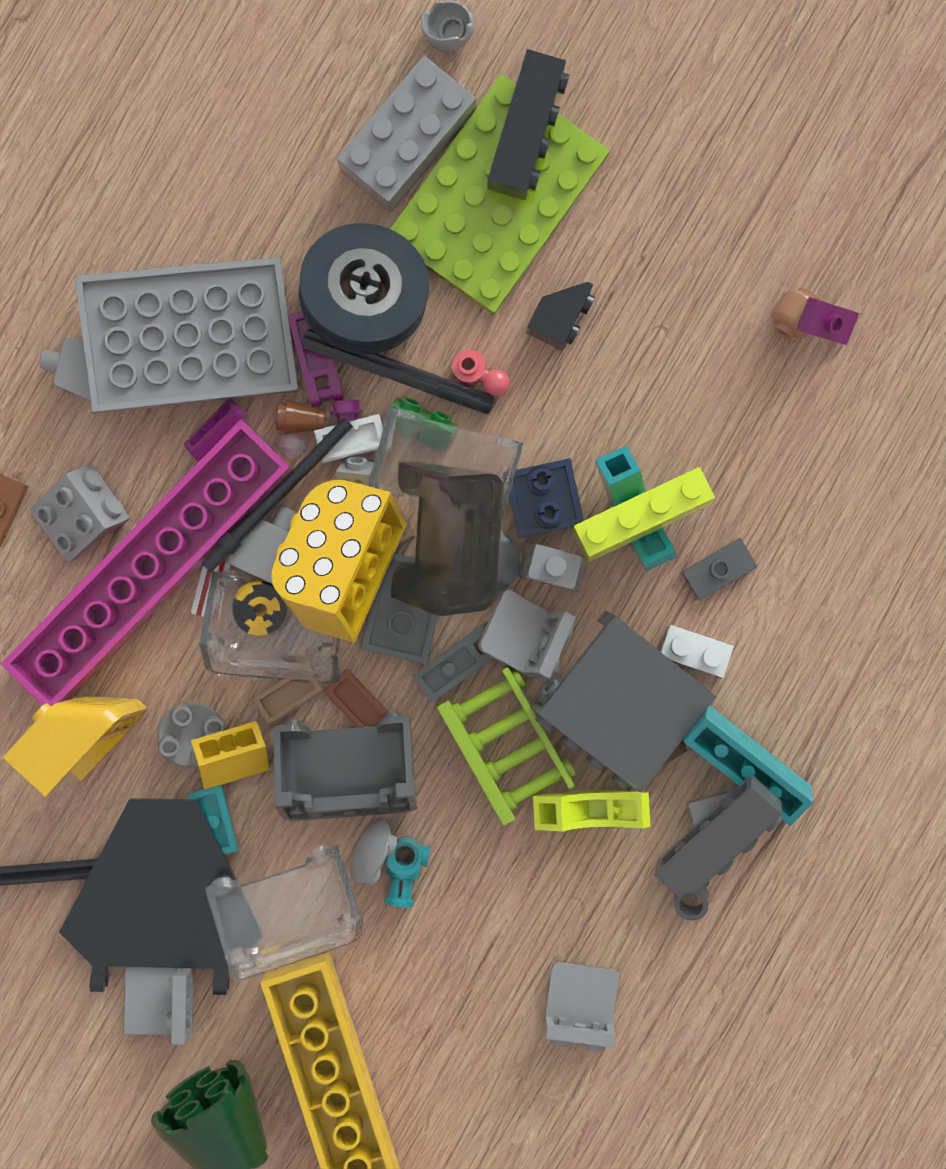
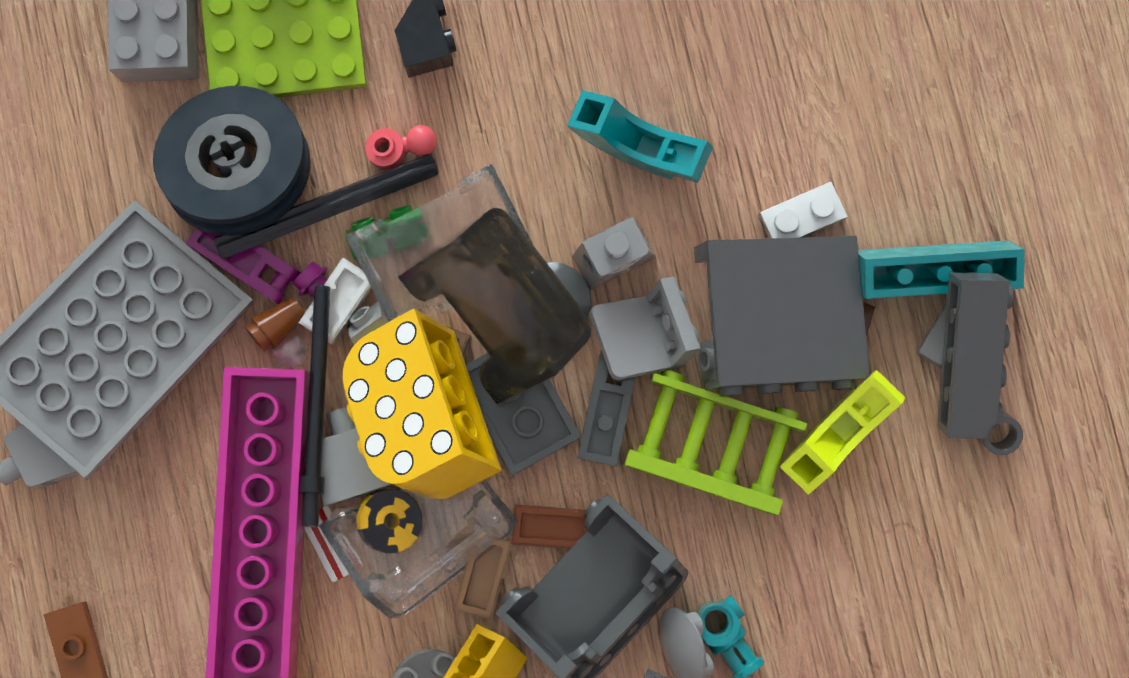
camera: 45 degrees left, 5 degrees down
(78, 511) = (150, 582): light grey bracket -> none
(214, 429) = (208, 399): magenta plate -> none
(545, 498) = (555, 201): dark blue plate -> none
(581, 1006) = (991, 614): light grey bracket -> none
(643, 514) = (651, 134): neon yellow brick -> none
(719, 569) = (757, 128): dark grey plate -> none

